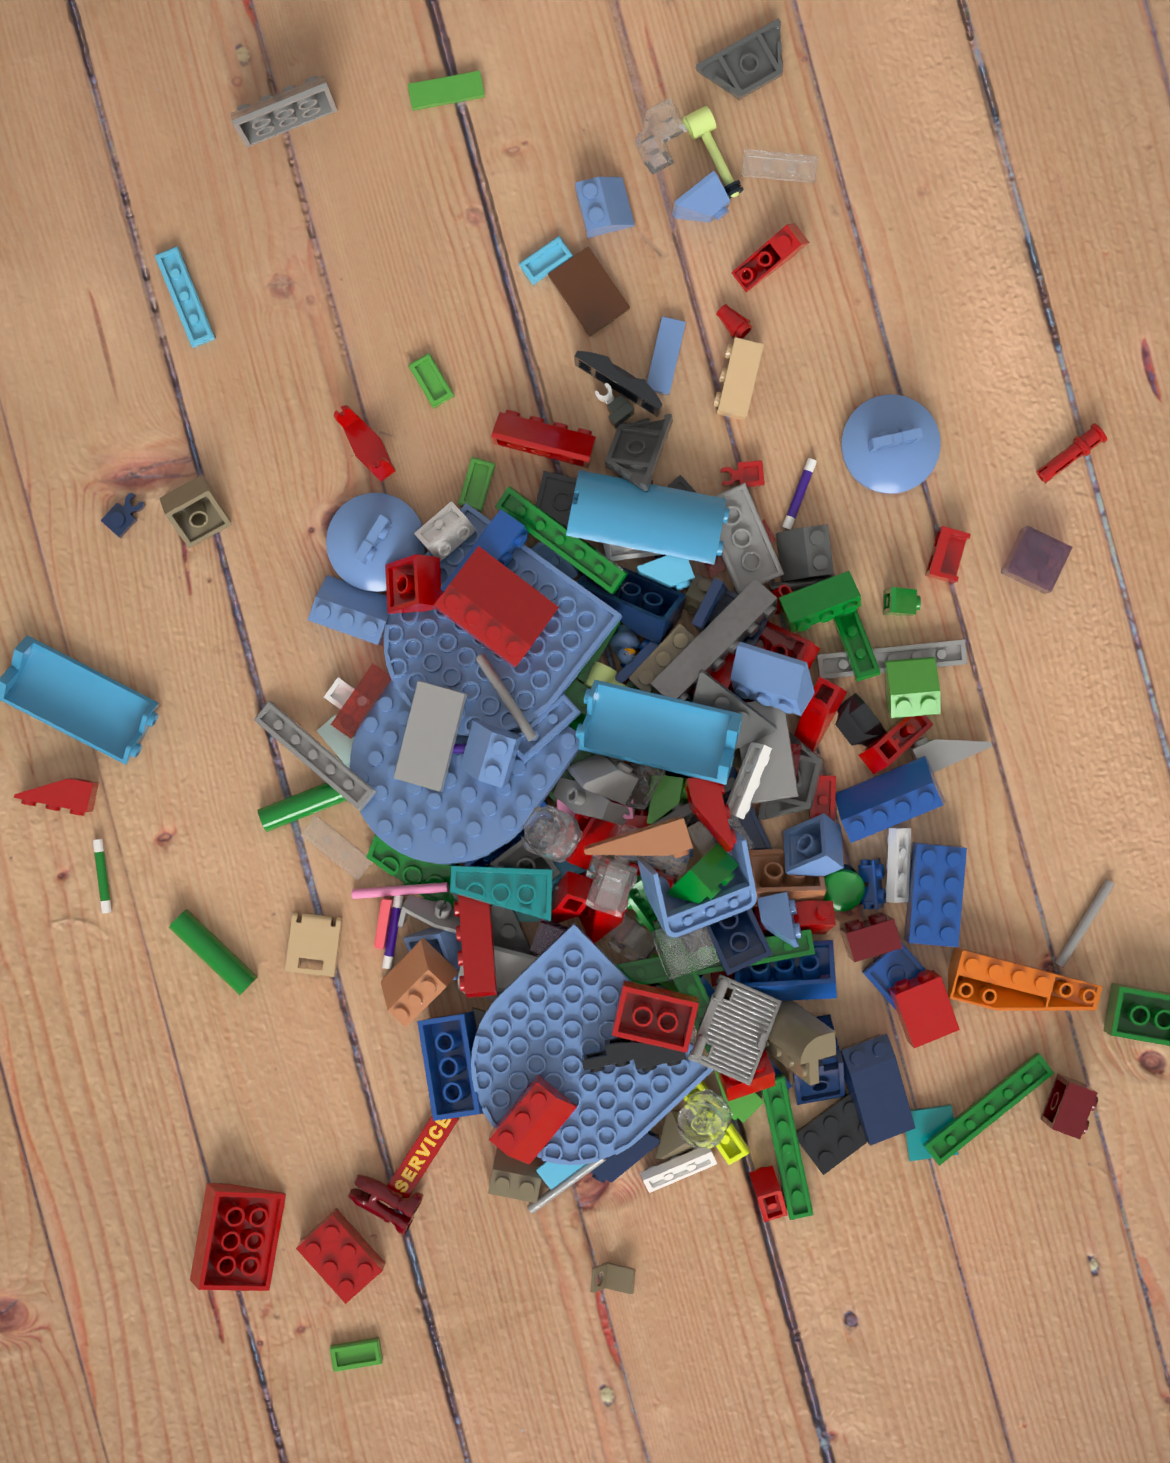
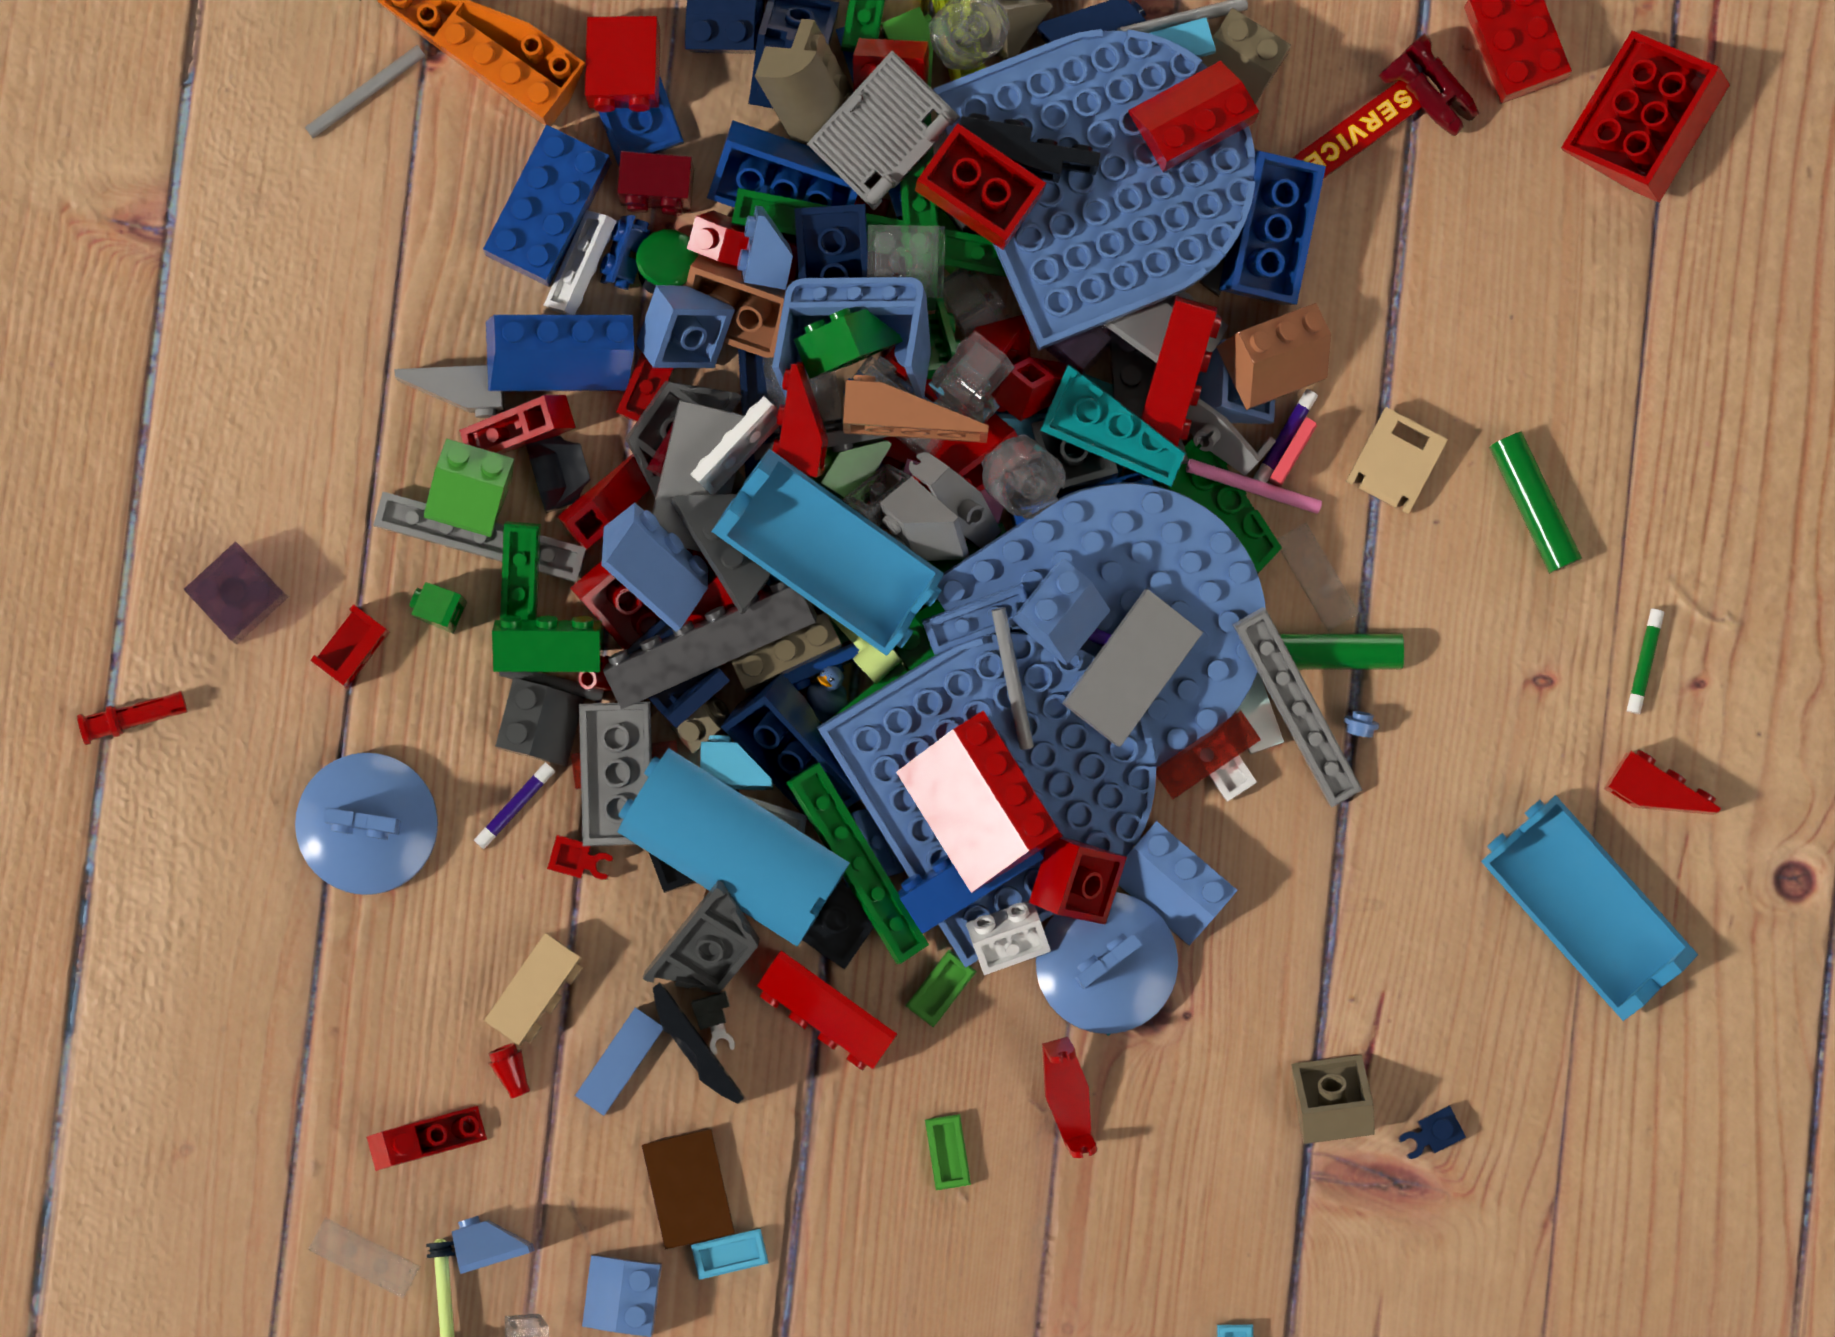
camera: 165 degrees left, 5 degrees down
(270, 761) = (1361, 724): none -> medium blue plate

